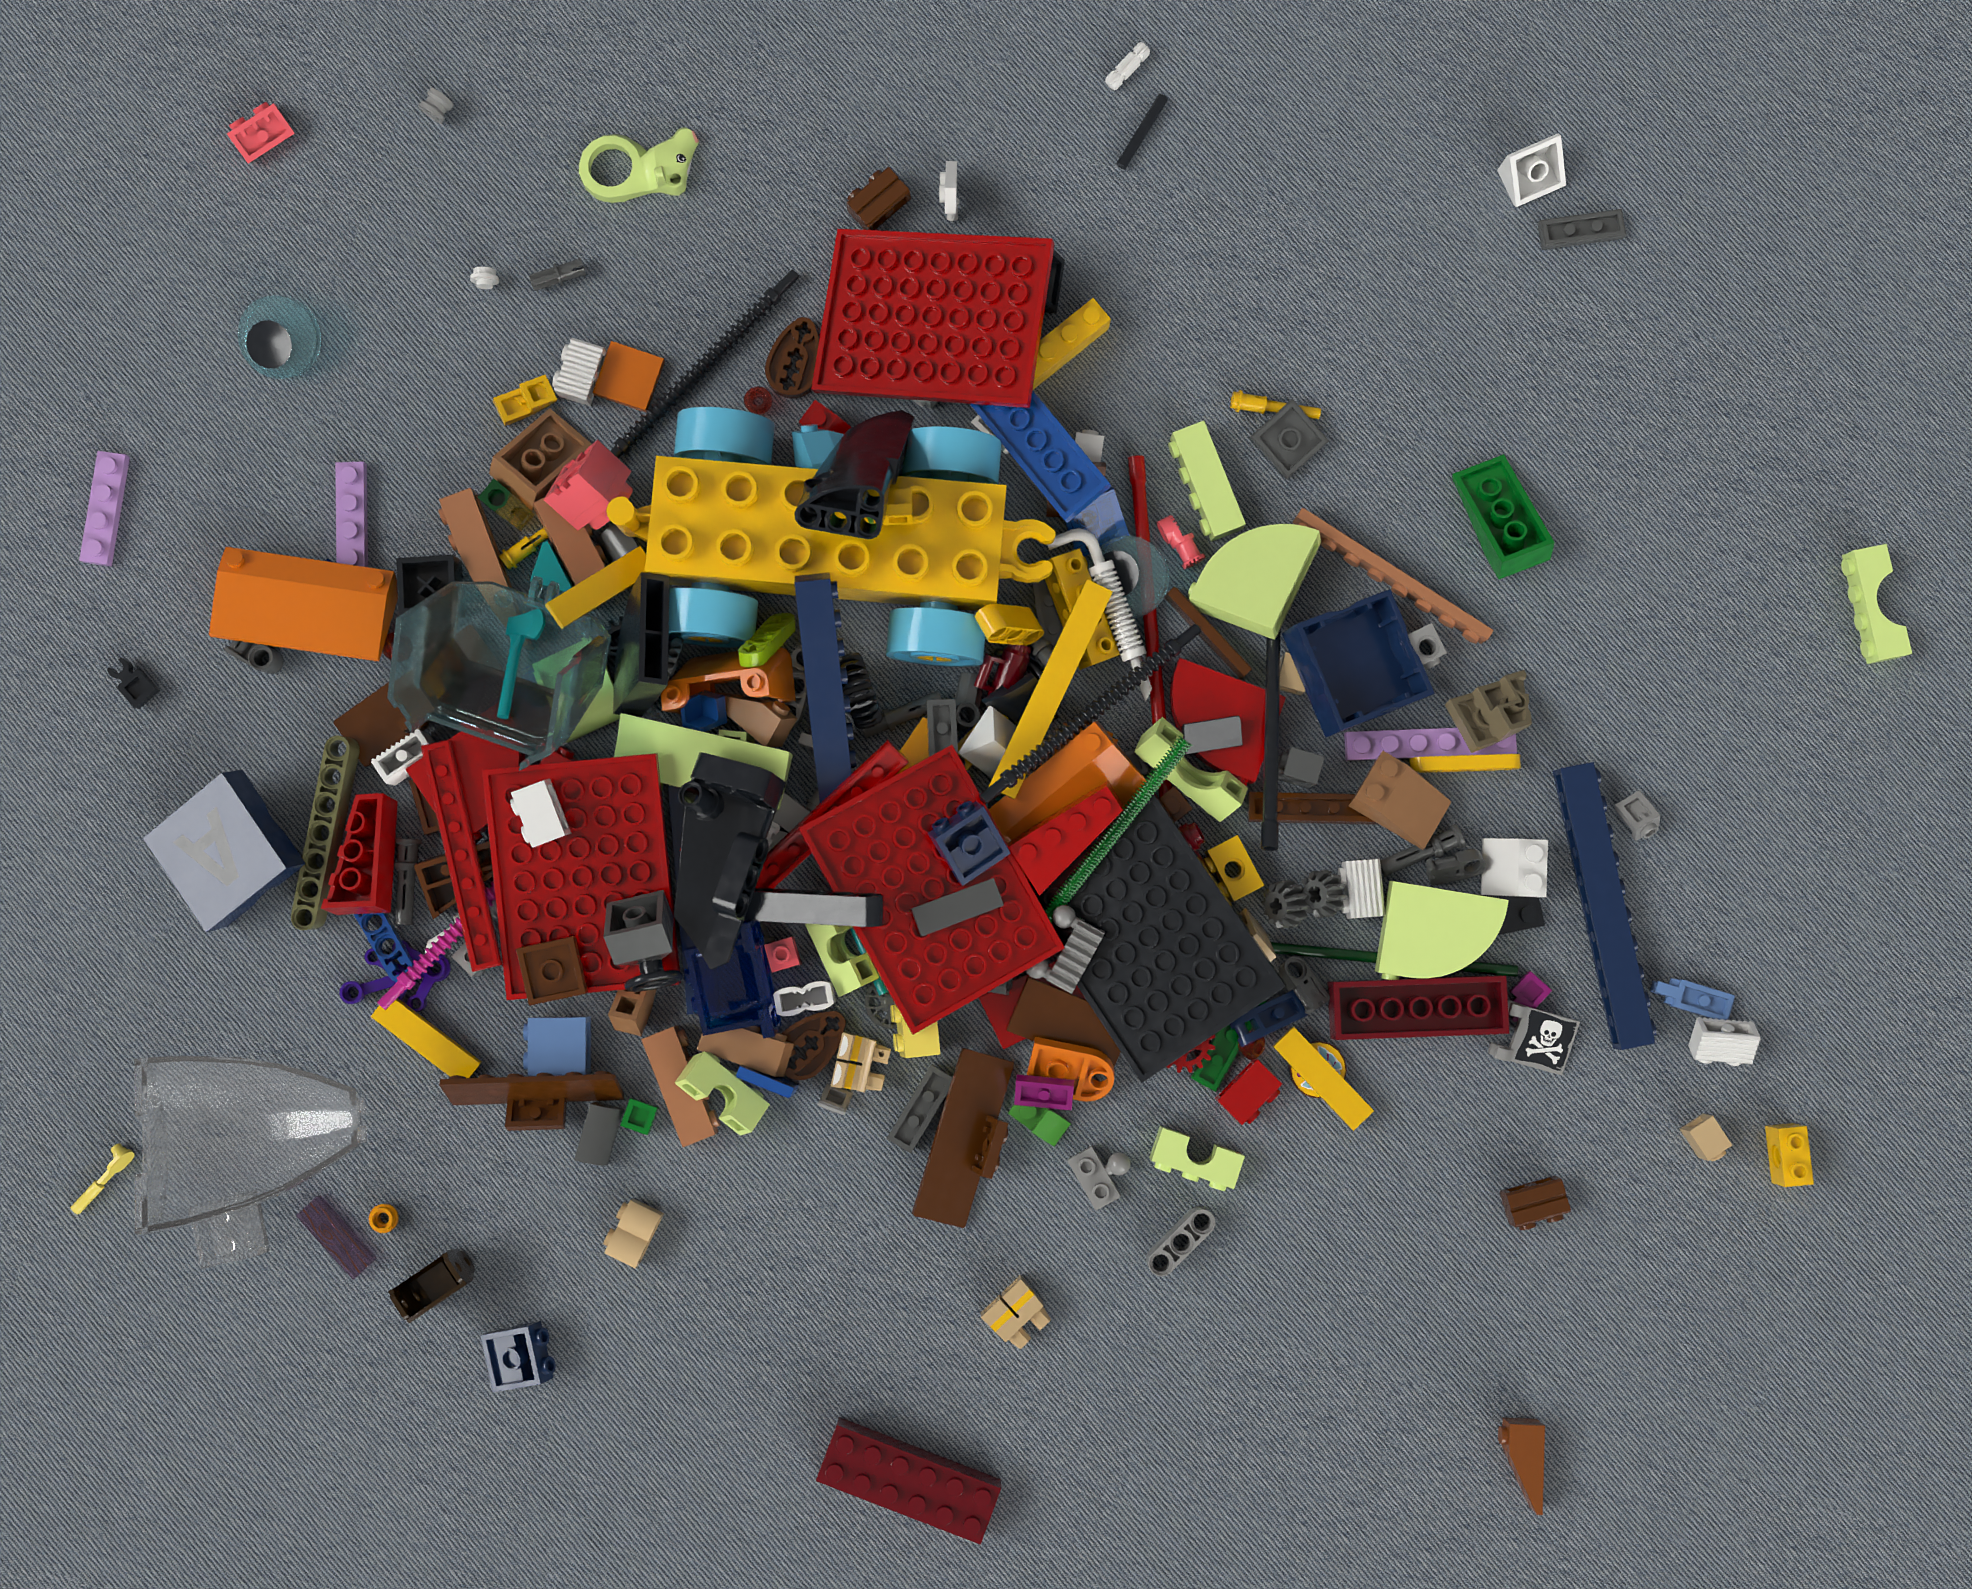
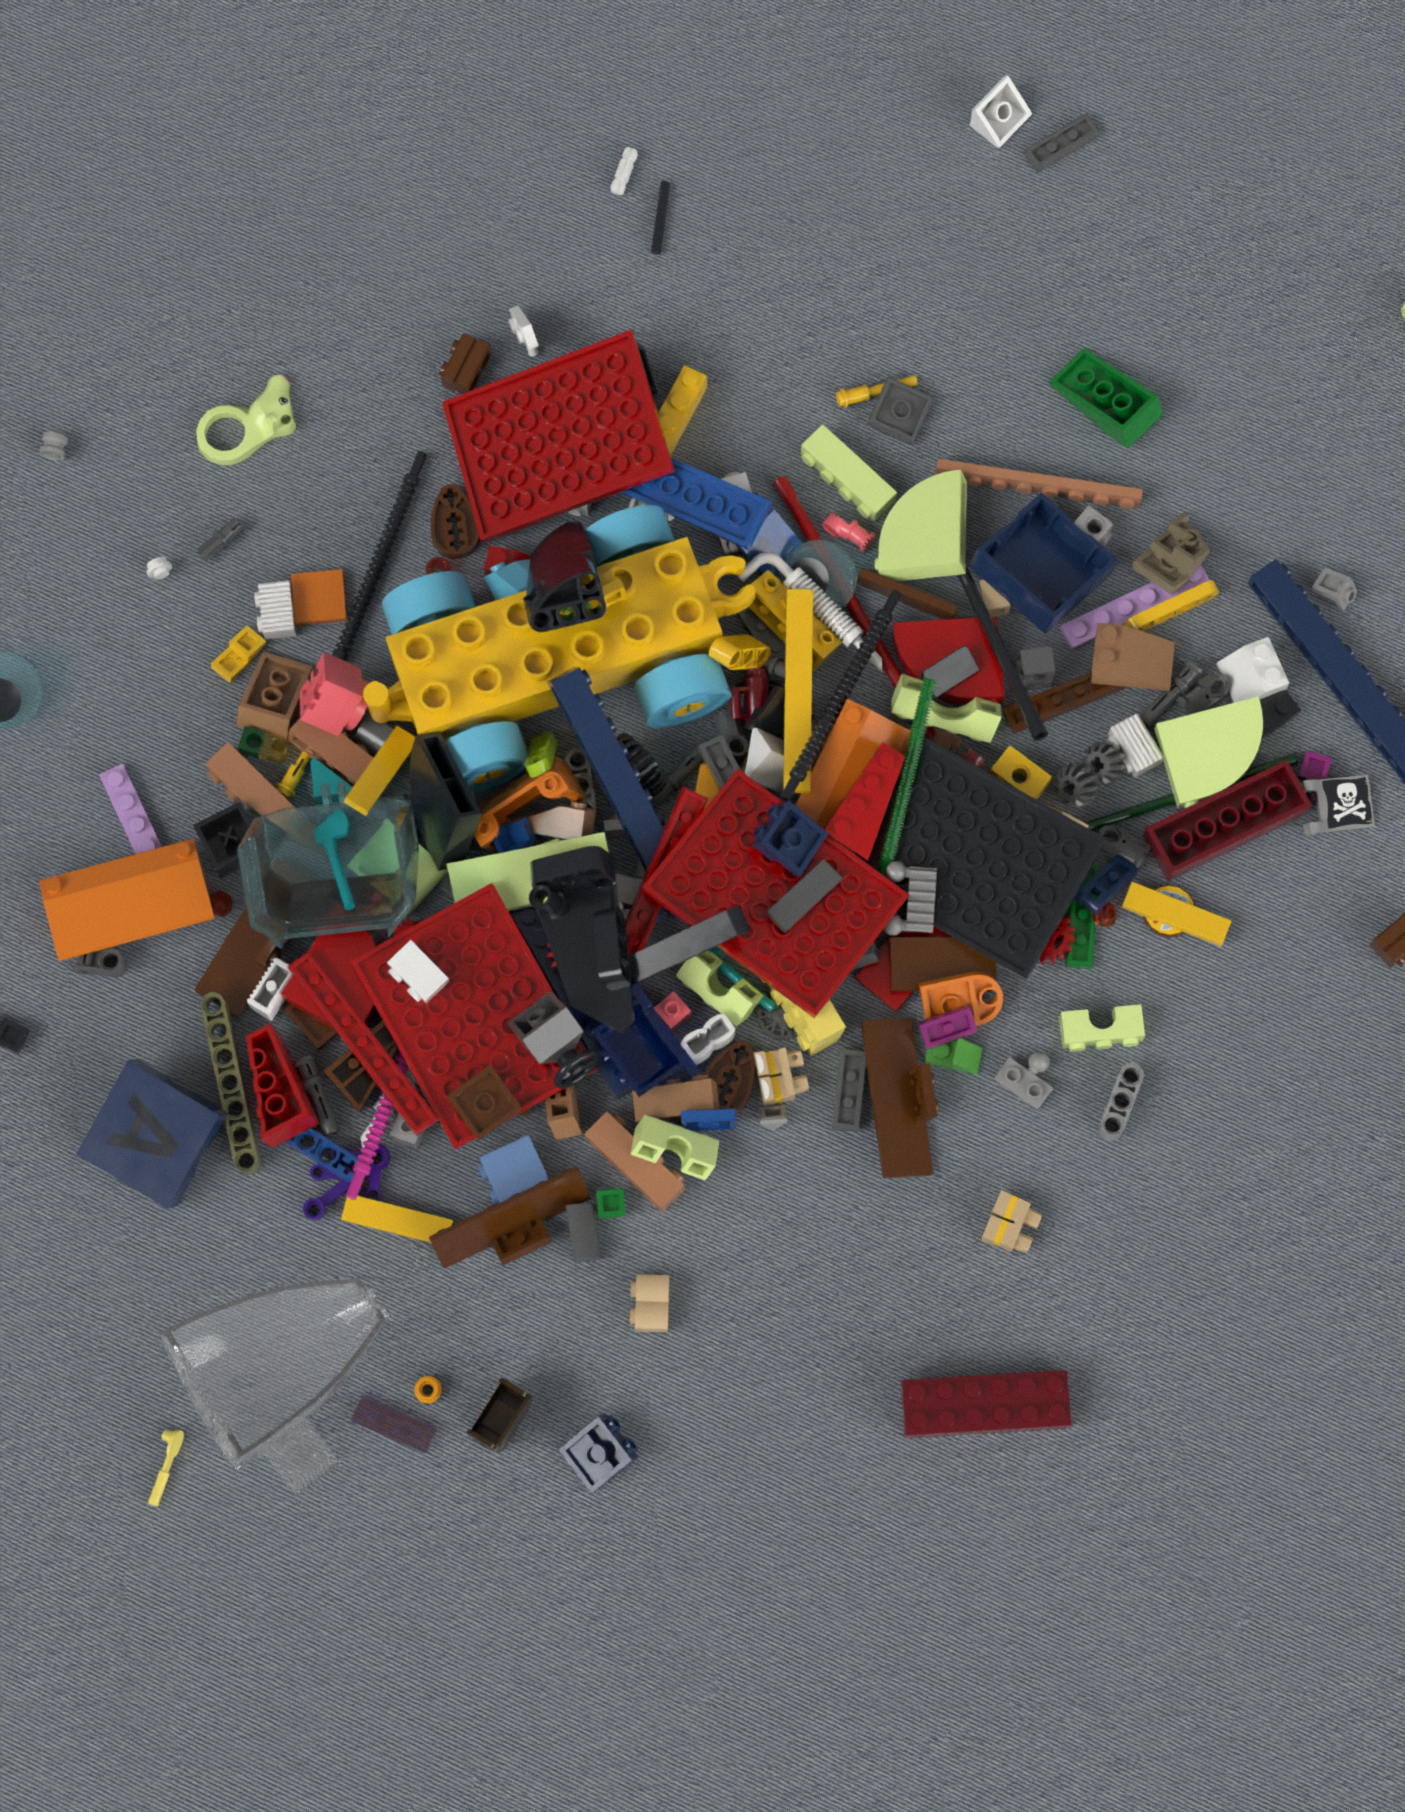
camera: 20 degrees left, 10 degrees down
(1249, 1092) = (1119, 953): red brick -> none

